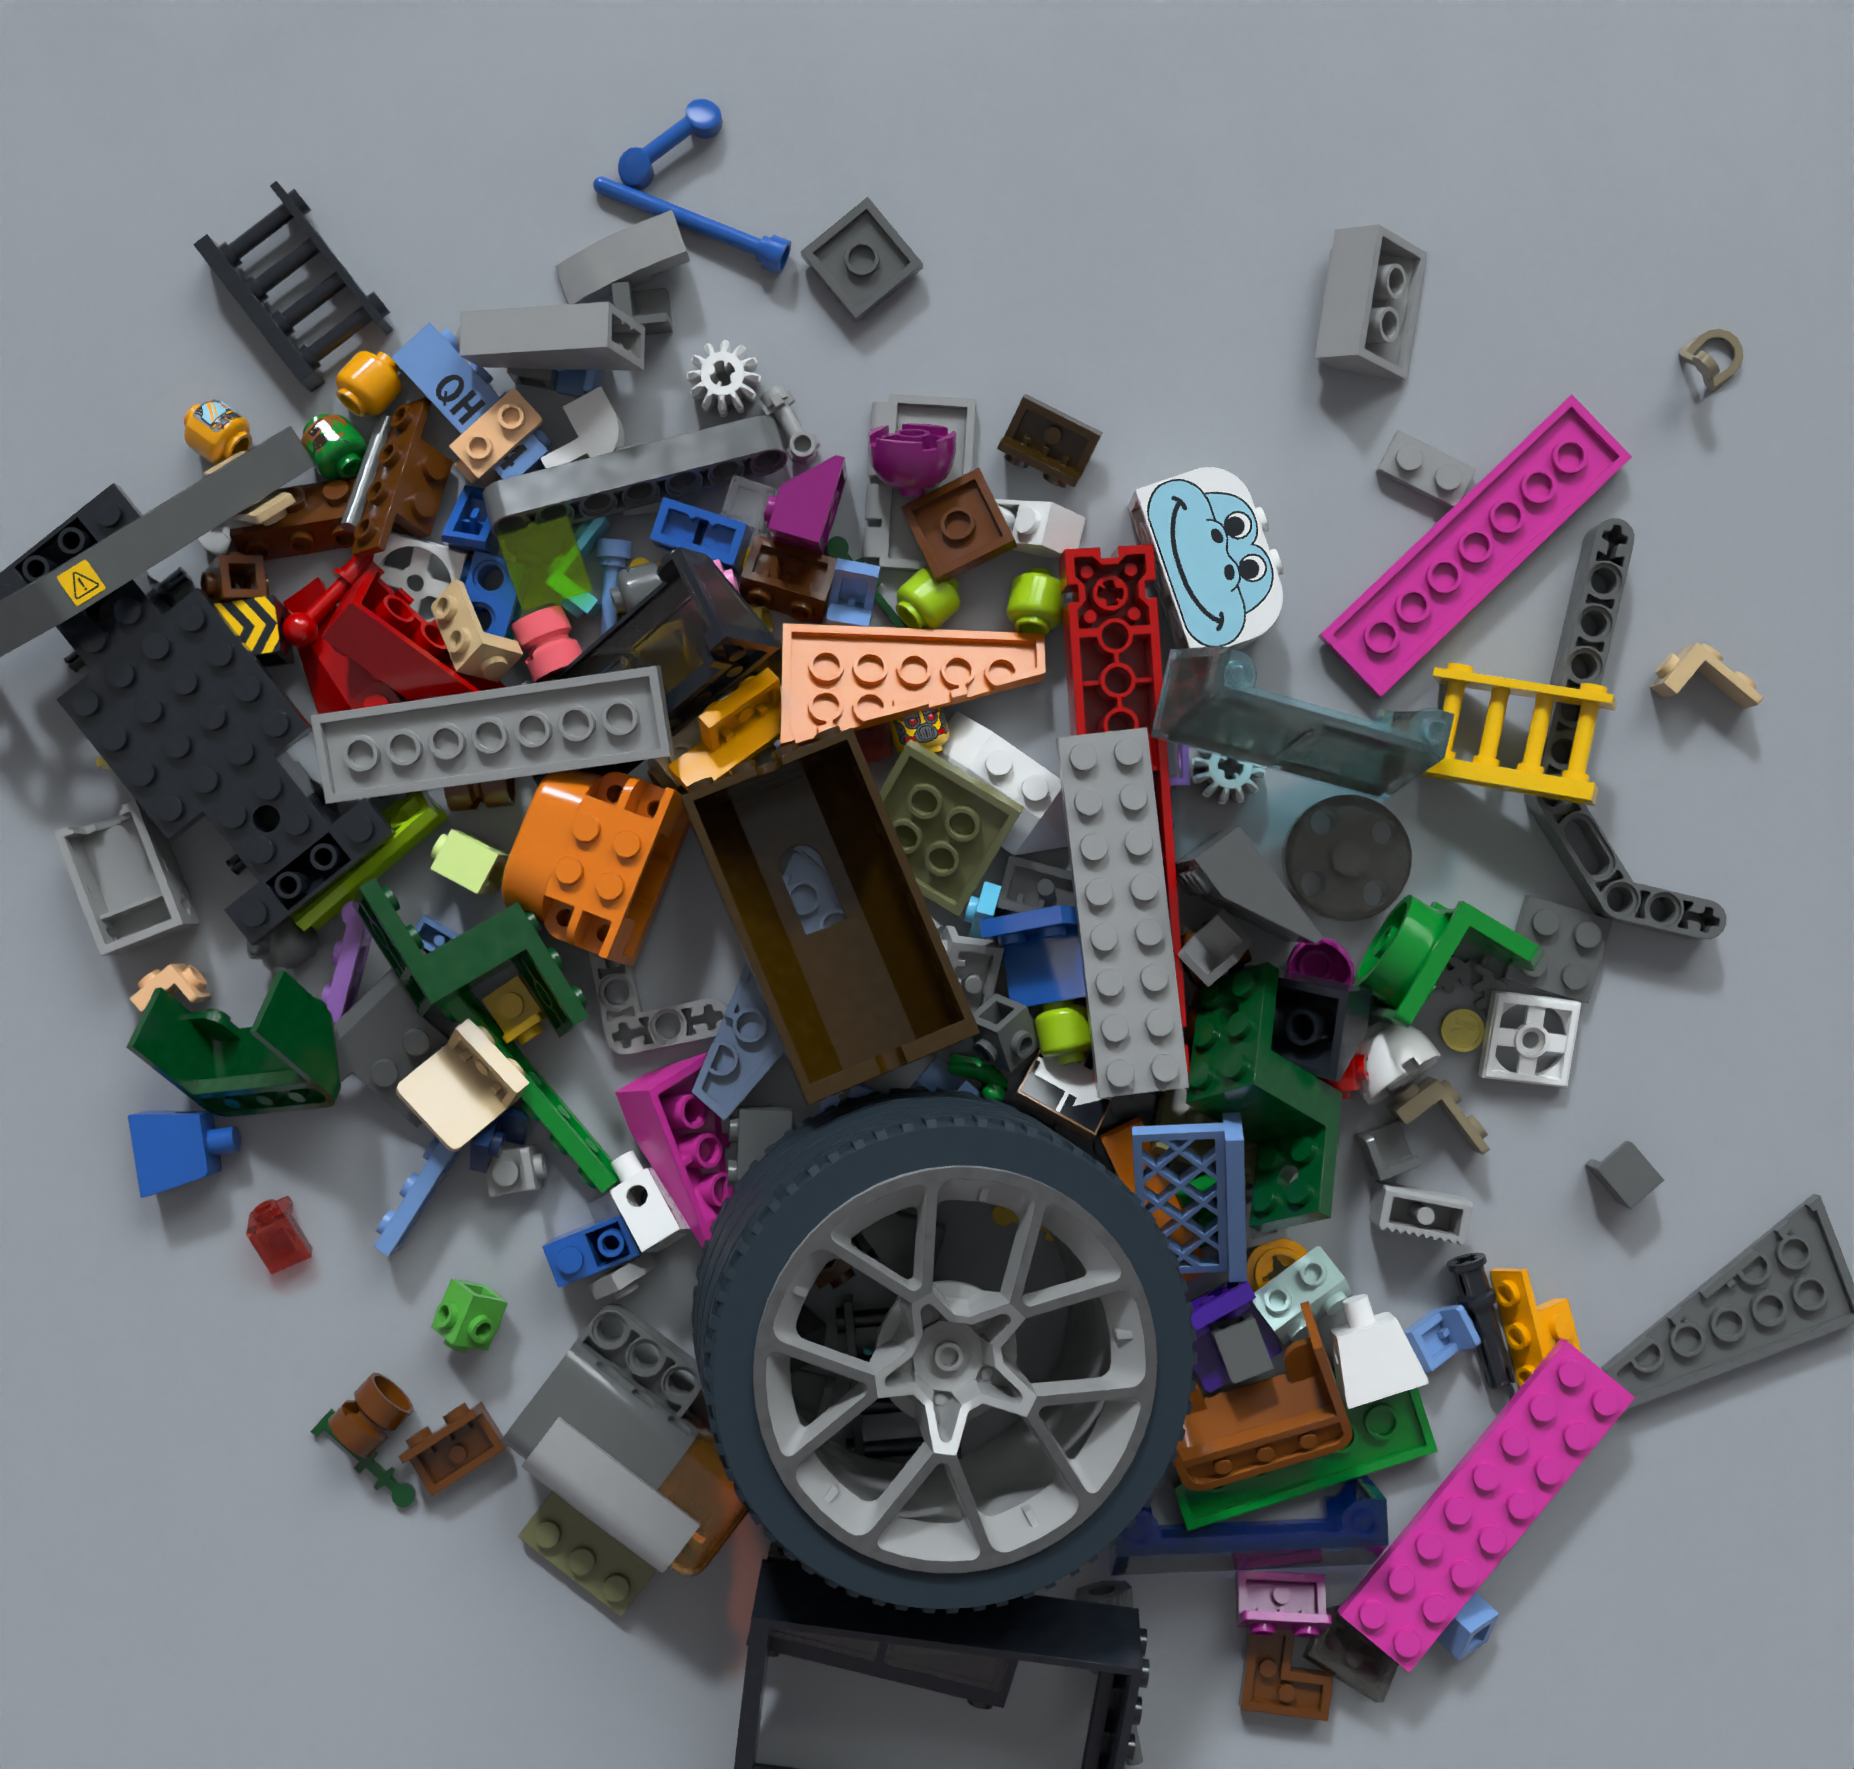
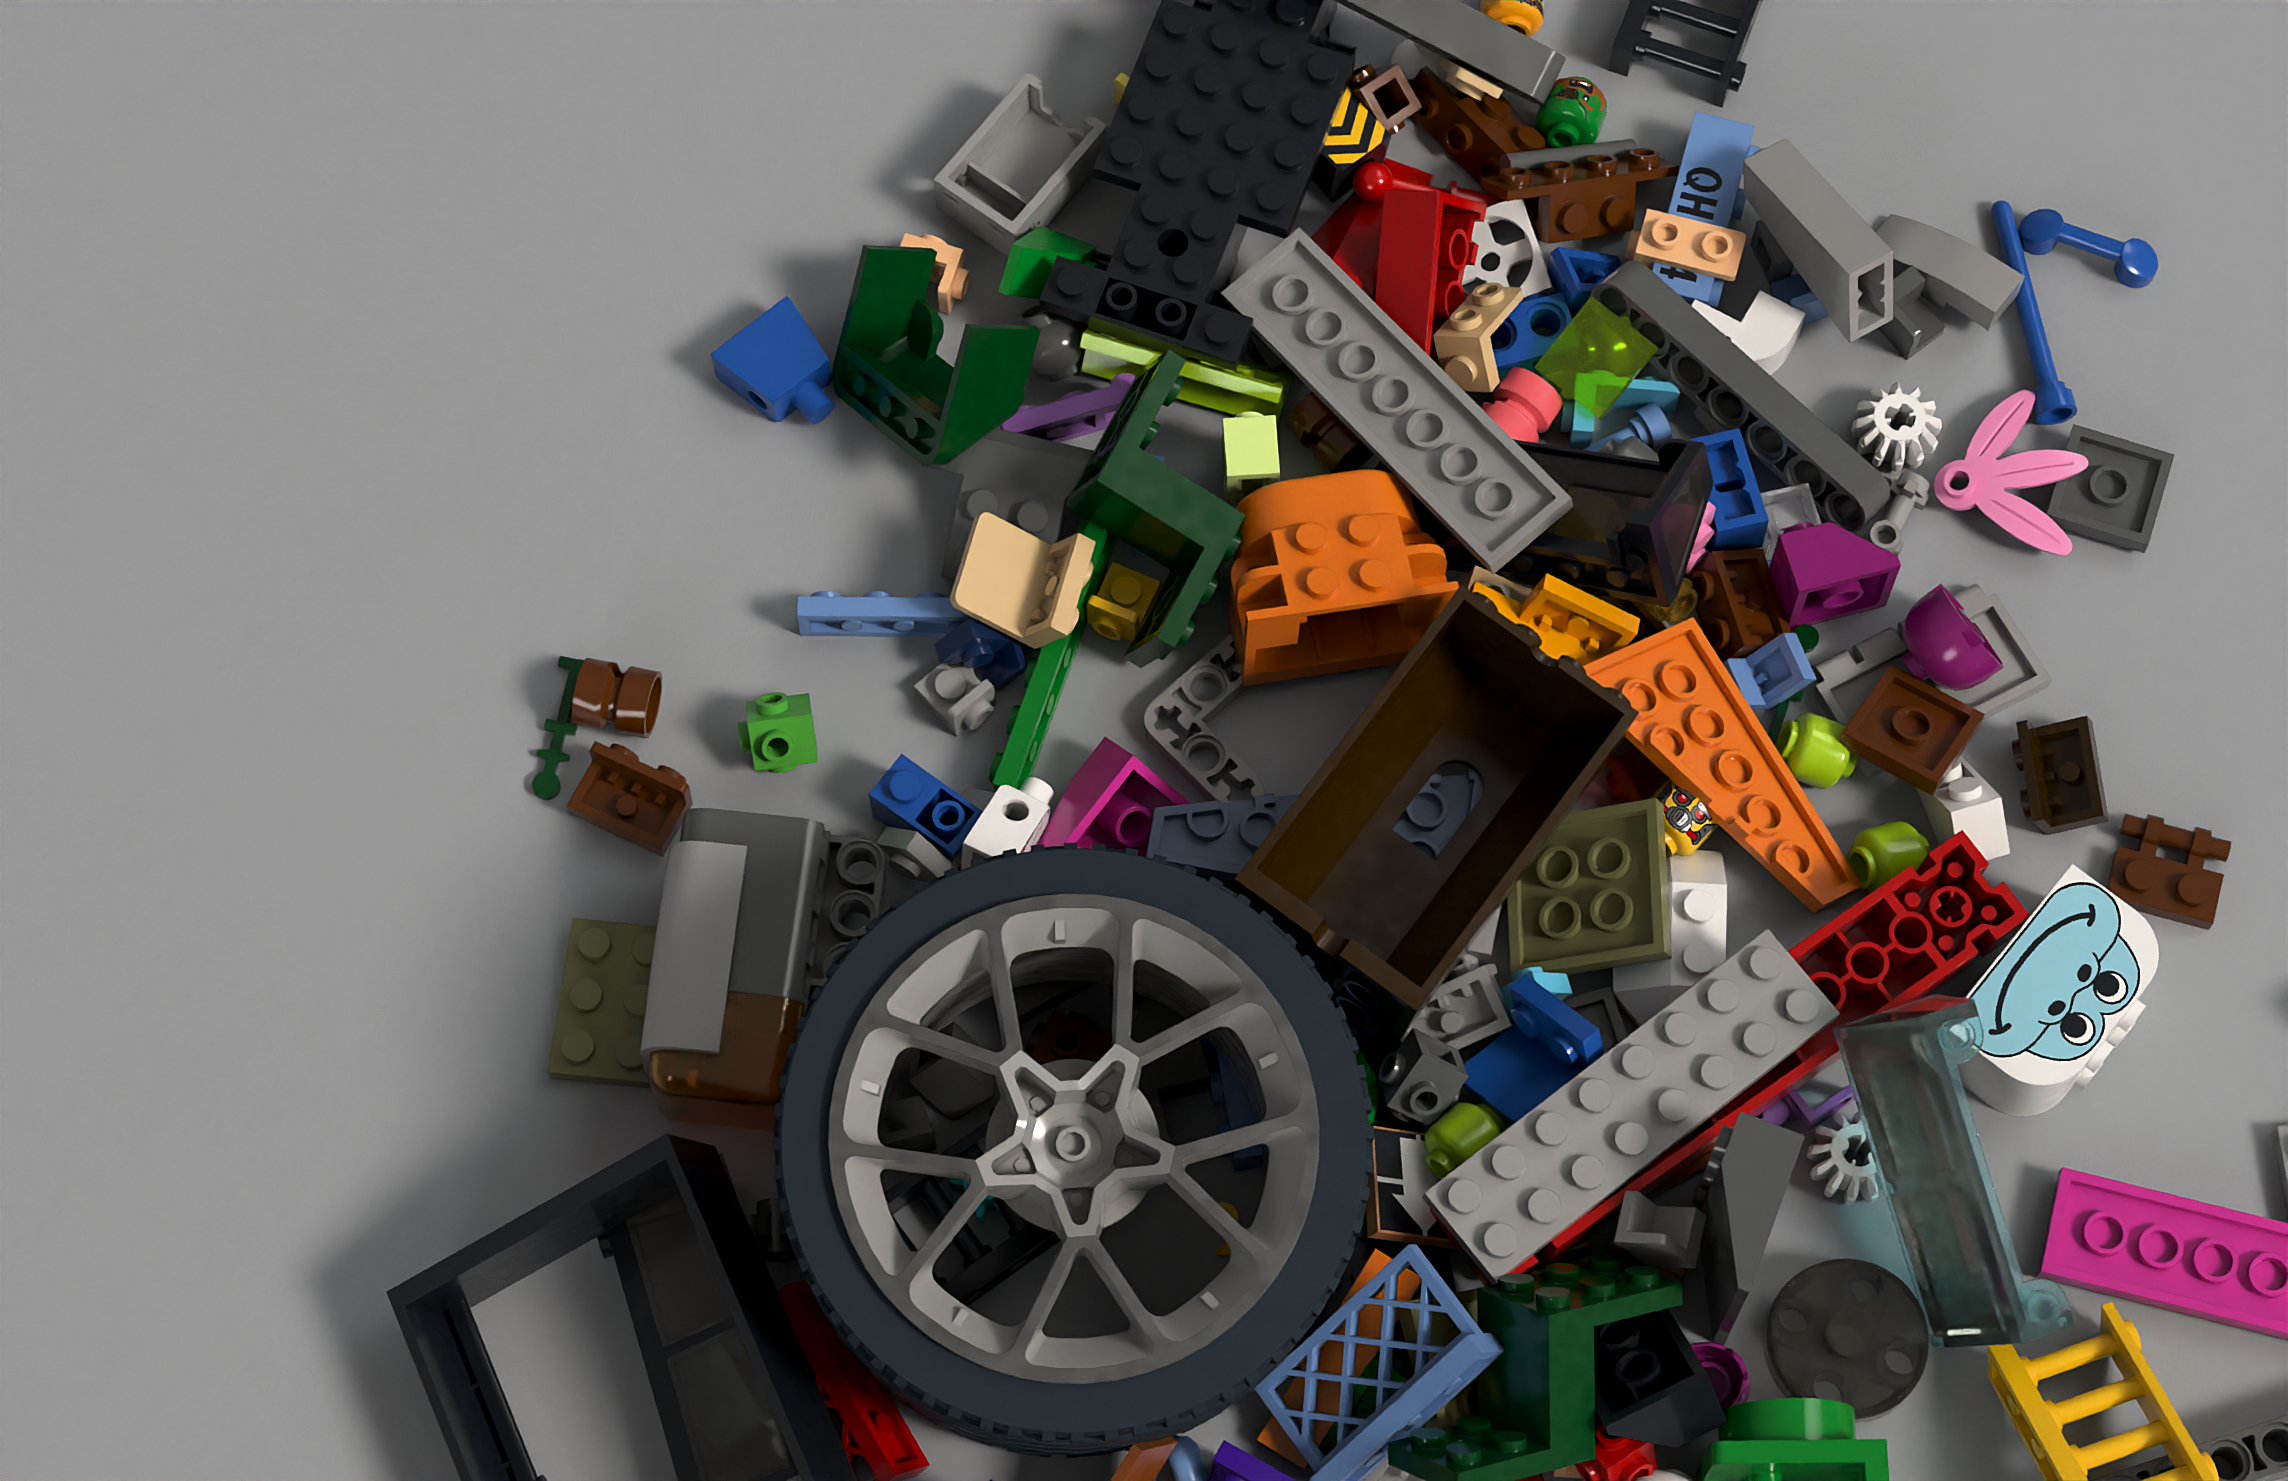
camera: 60 degrees right, 20 degrees down
(206, 910) = (1034, 257): none -> green slope
(277, 1235) = (746, 507): clear red bracket -> none
(368, 383) = (1654, 110): light orange head -> none
(804, 337) = (2022, 470): none -> bright pink plant
(1168, 425) = (2165, 886): none -> reddish brown plate

